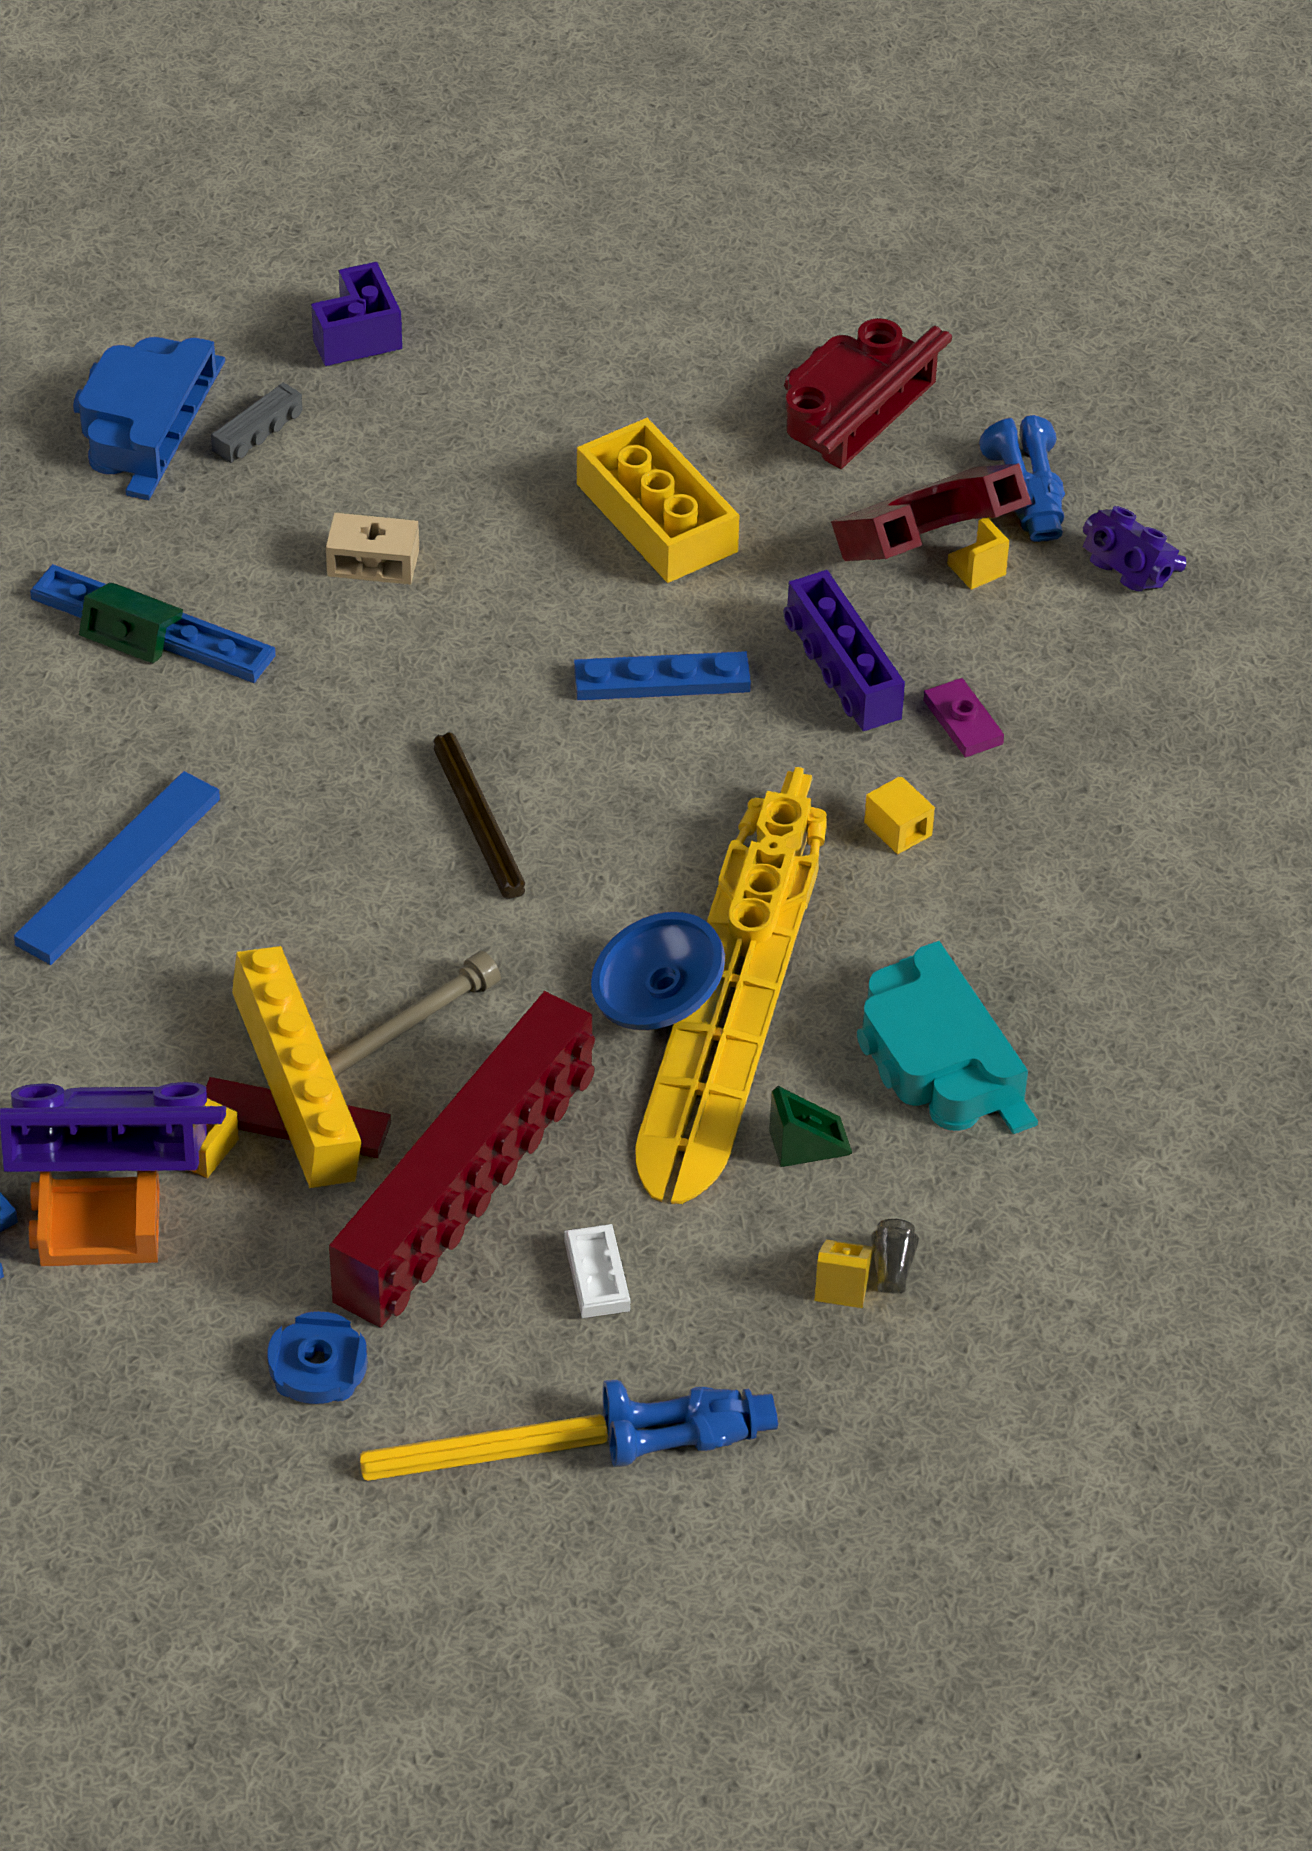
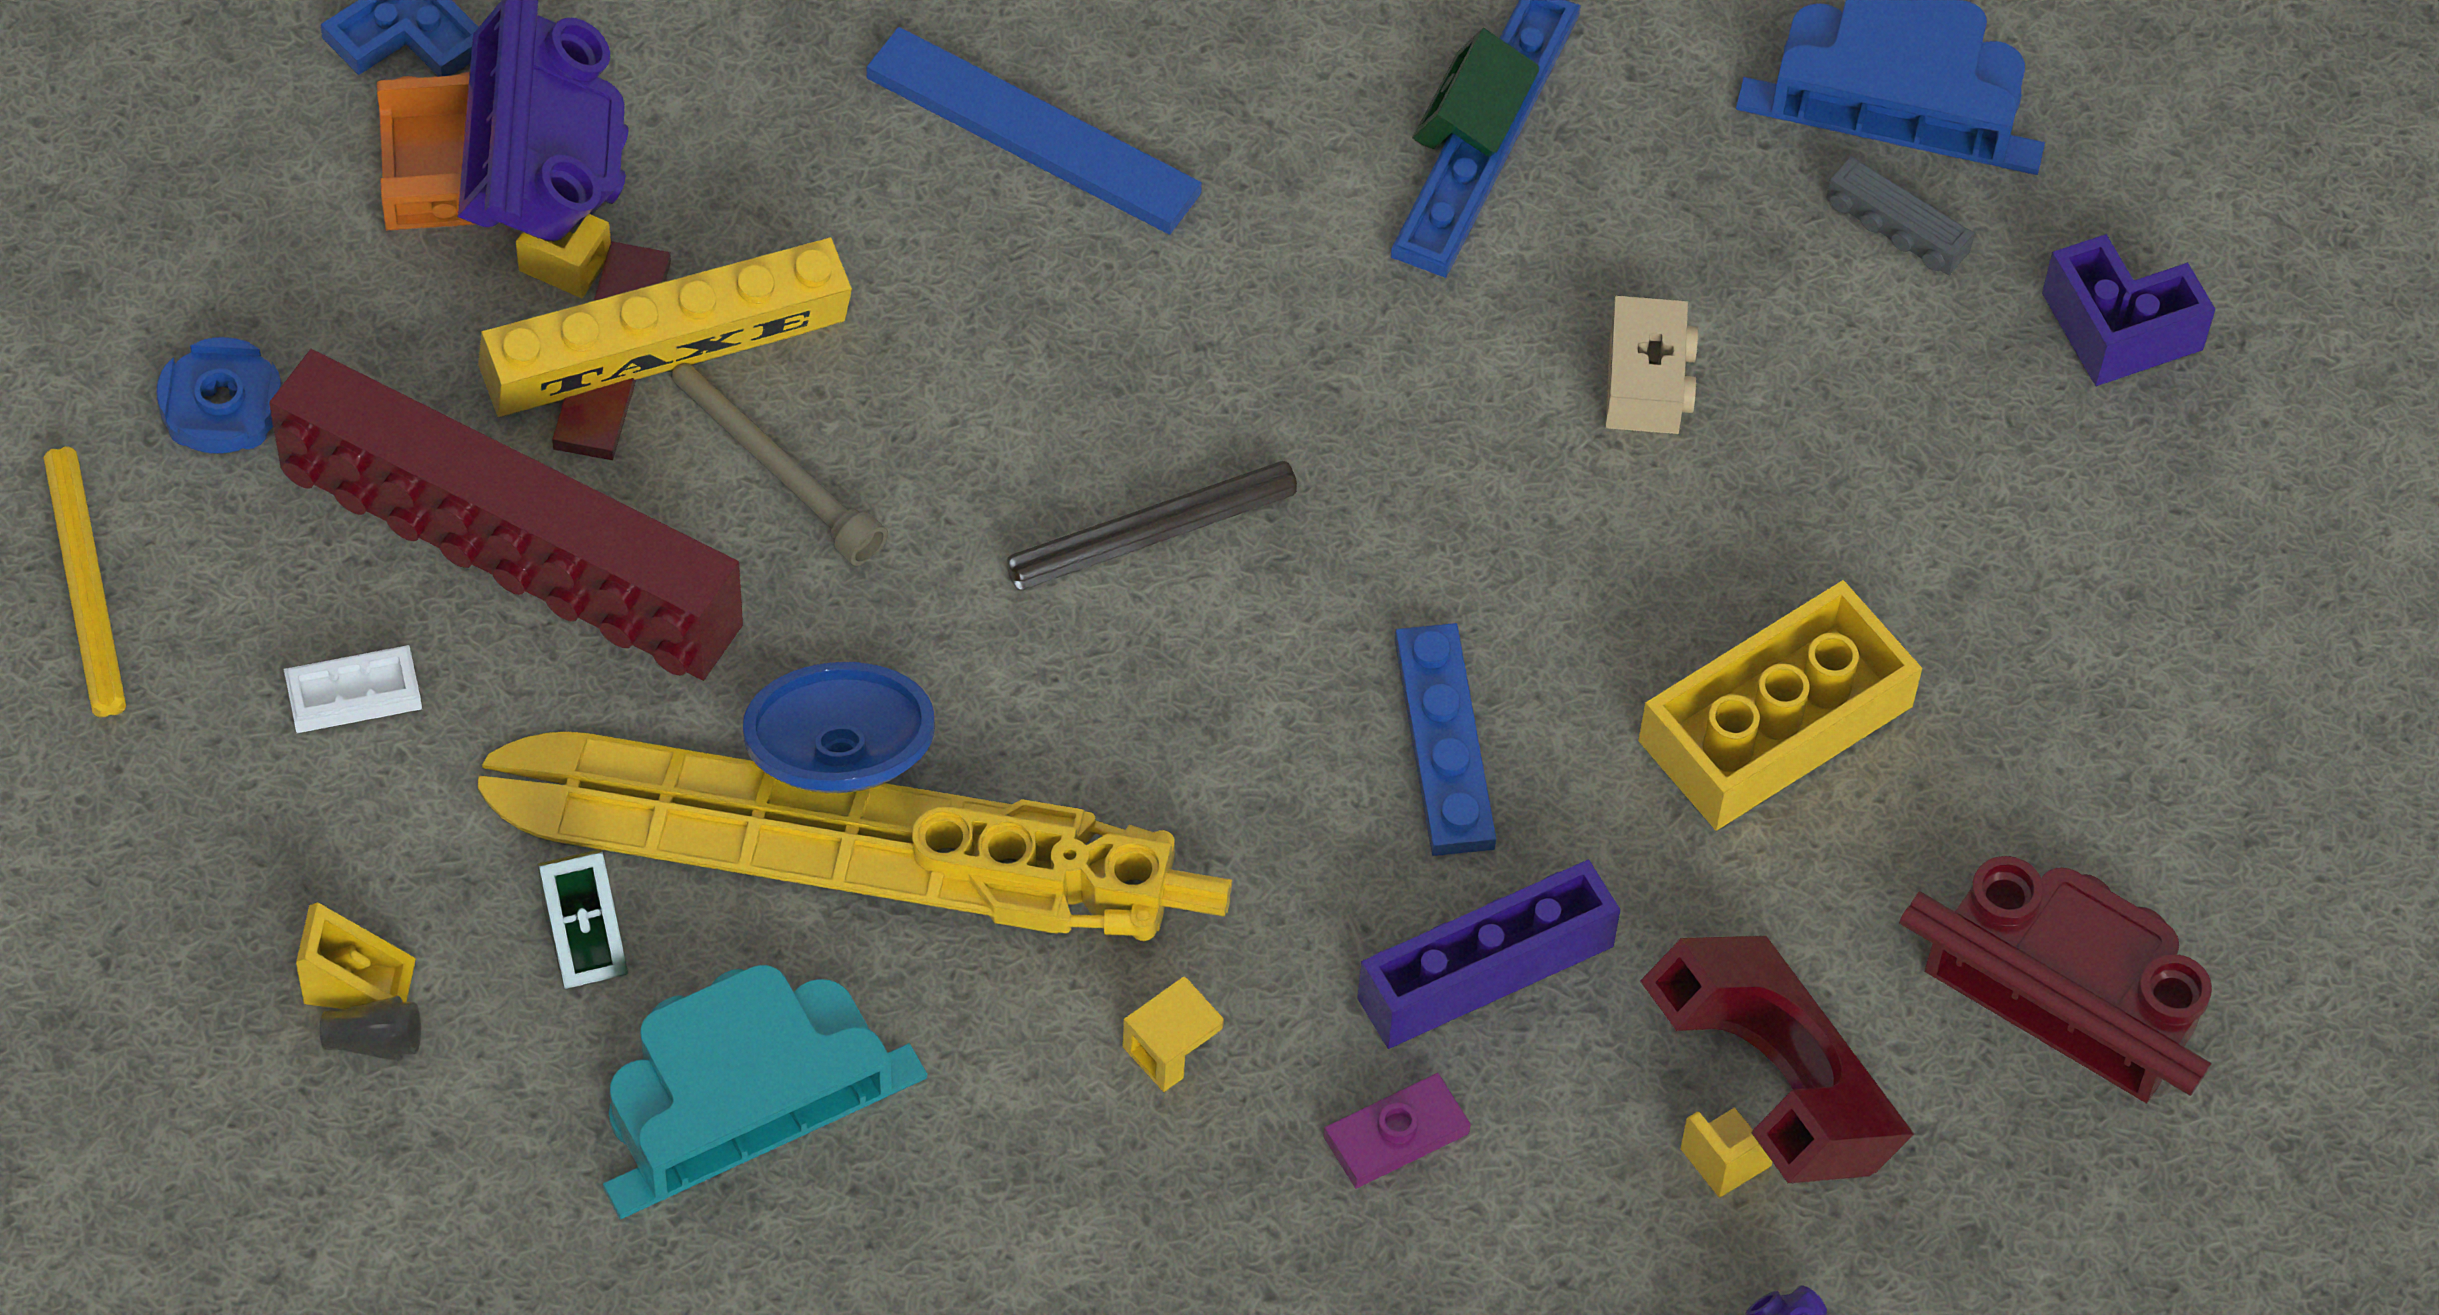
camera: 85 degrees right, 10 degrees up
(709, 1417) = (114, 824): blue piece -> none
(1045, 488) = (1878, 1228): blue piece -> none

